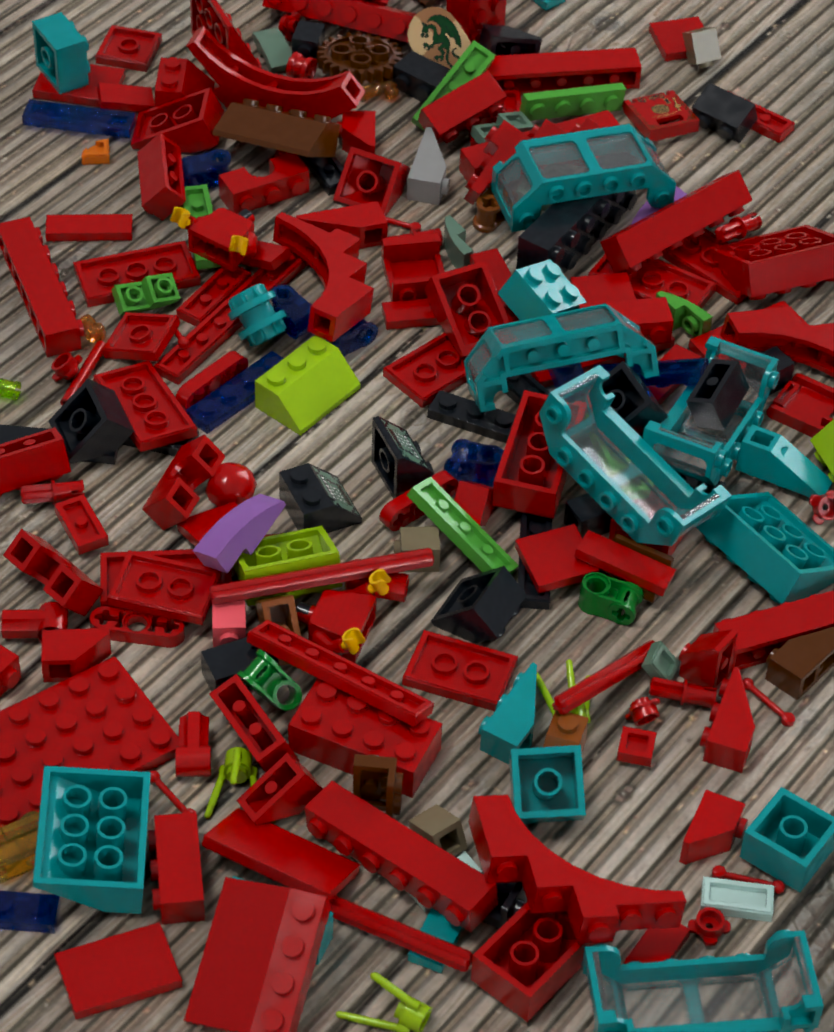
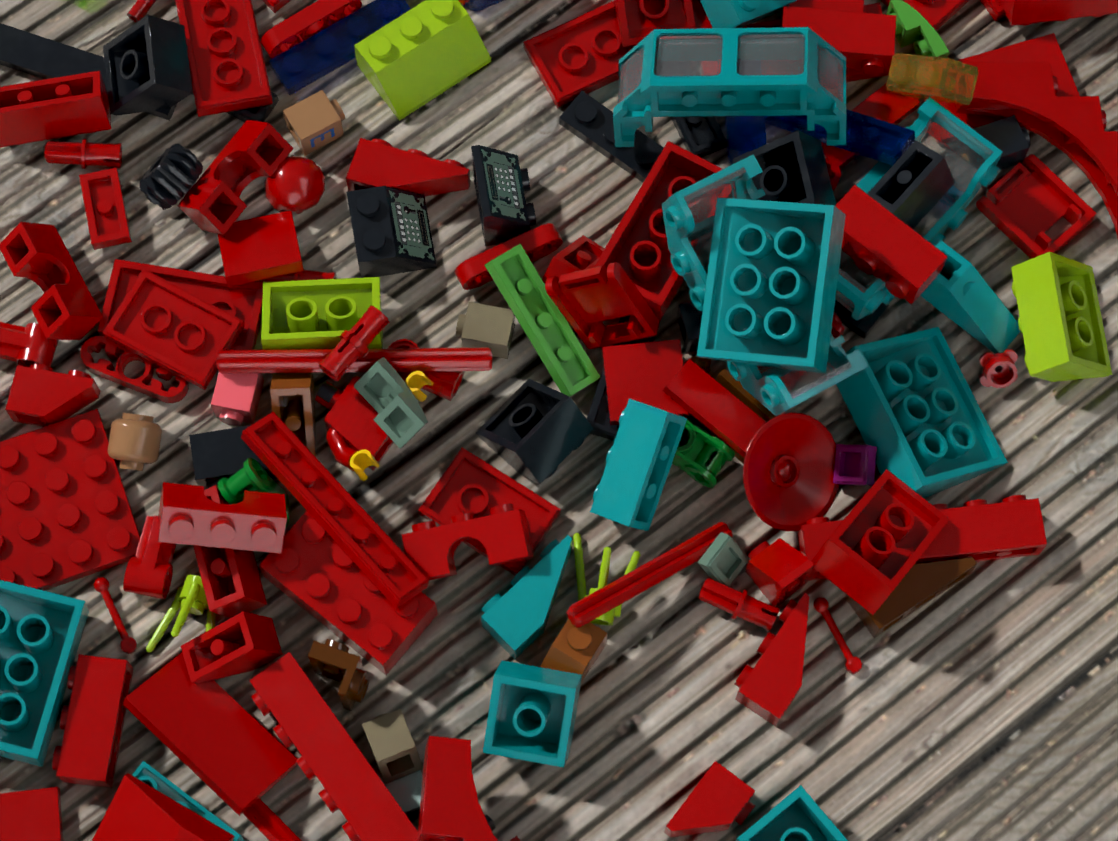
camera: 15 degrees right, 25 degrees up
(131, 490) = (171, 176): none -> black gear
(153, 669) = (134, 441): none -> medium nougat head
(236, 439) = (314, 122): none -> medium nougat brick
(238, 532) = (270, 280): medium lavender slope -> none
(251, 688) = (193, 519): none -> red arch
(321, 556) = (354, 343): none -> red pin
(333, 457) = (380, 164): none -> red slope
(362, 594) = (396, 405): none -> sand green slope
(475, 669) = (502, 534): none -> red arch
(477, 461) = (587, 208): clear blue piece -> none
(506, 497) = (602, 295): none -> red container
(572, 605) = (638, 465): none -> teal brick
(636, 746) = (660, 669): red plate -> none
(641, 448) = (772, 284): none -> teal slope
(643, 711) = (683, 622): red plate -> none
(692, 591) = (790, 471): none -> red hat
(713, 422) = (888, 246): none -> red brick
(716, 320) = (932, 77): none -> clear yellow brick
(739, 584) = (854, 465): none -> magenta tile
(779, 618) = (879, 541): none -> red slope

